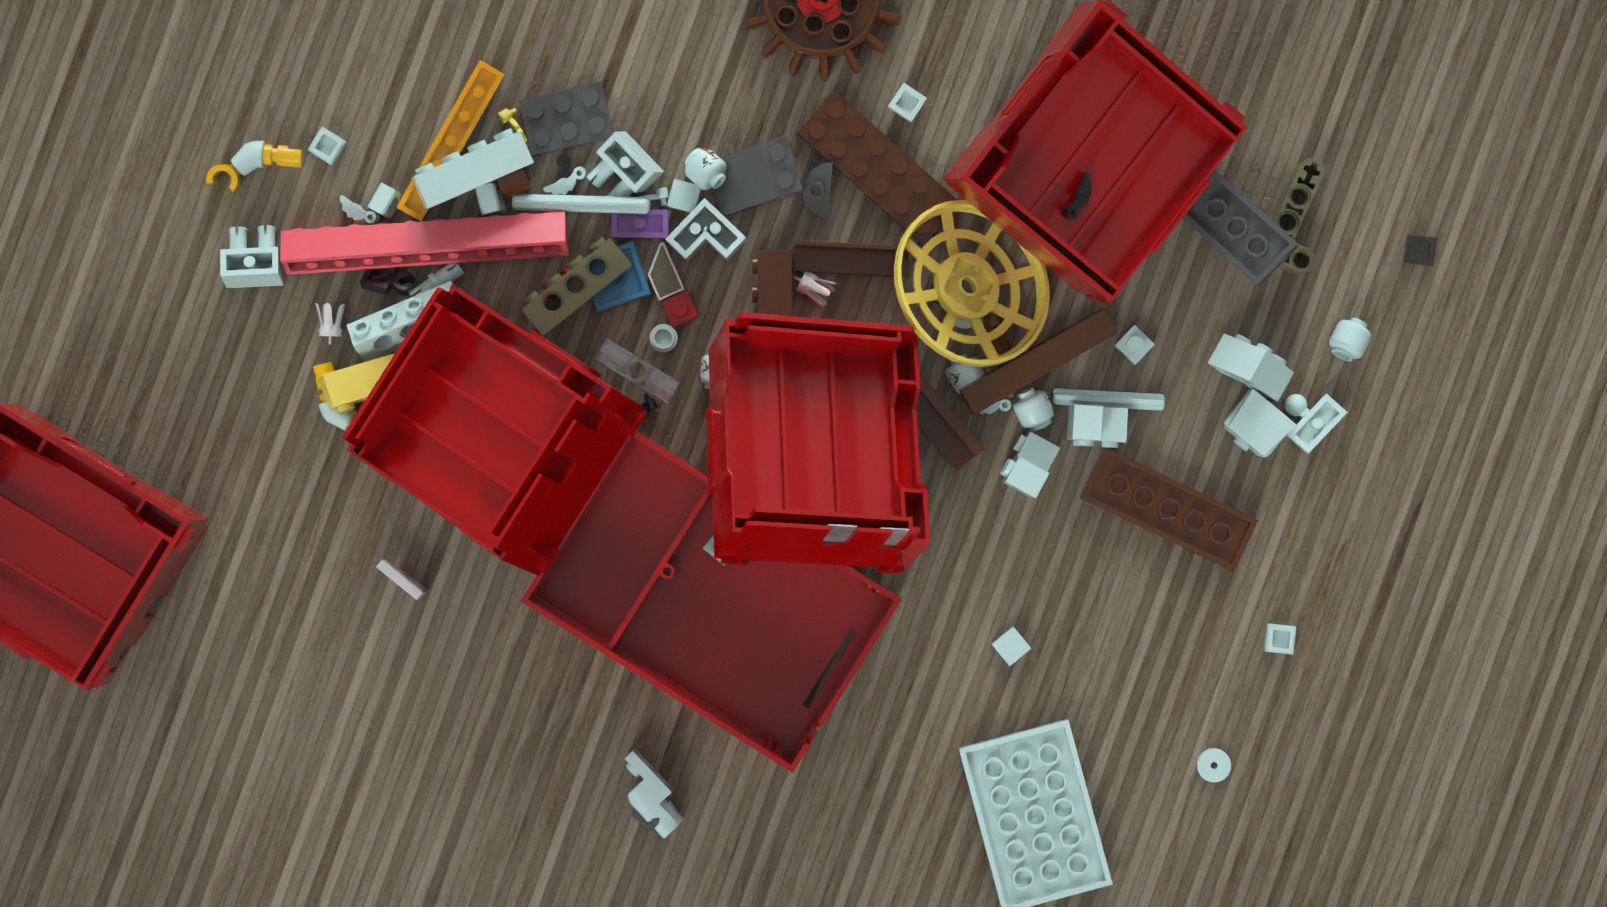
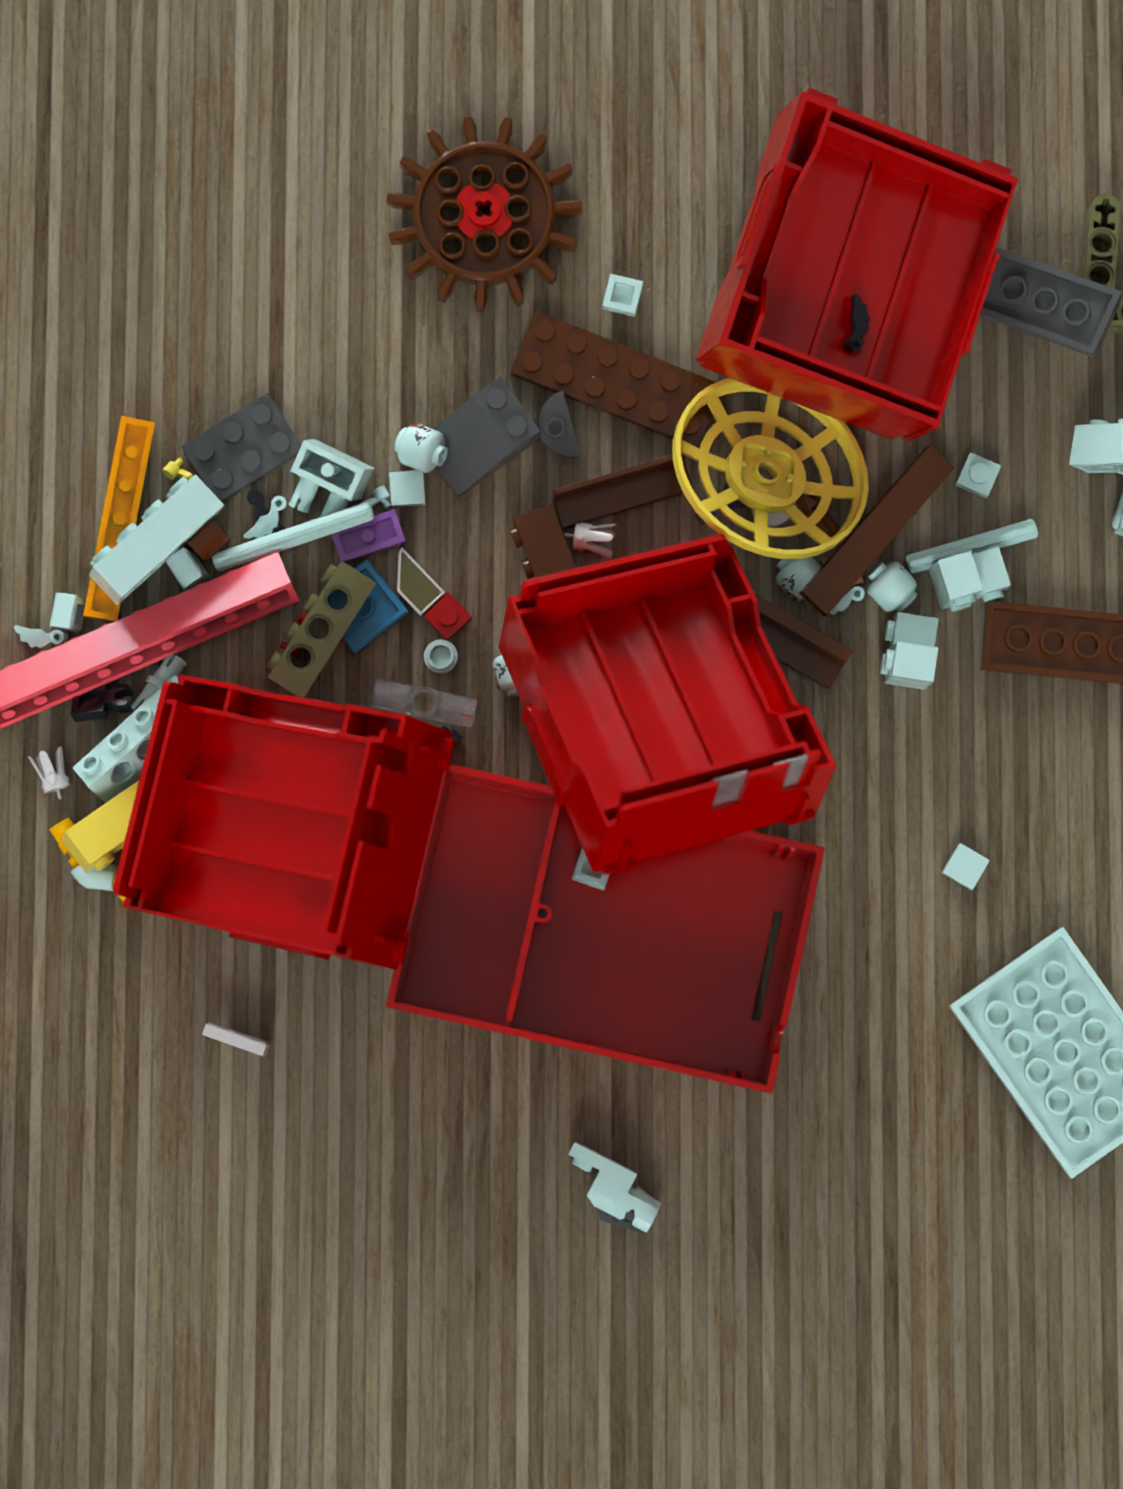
camera: 15 degrees left, 5 degrees down
(704, 226) = (444, 511): light aqua brick -> none

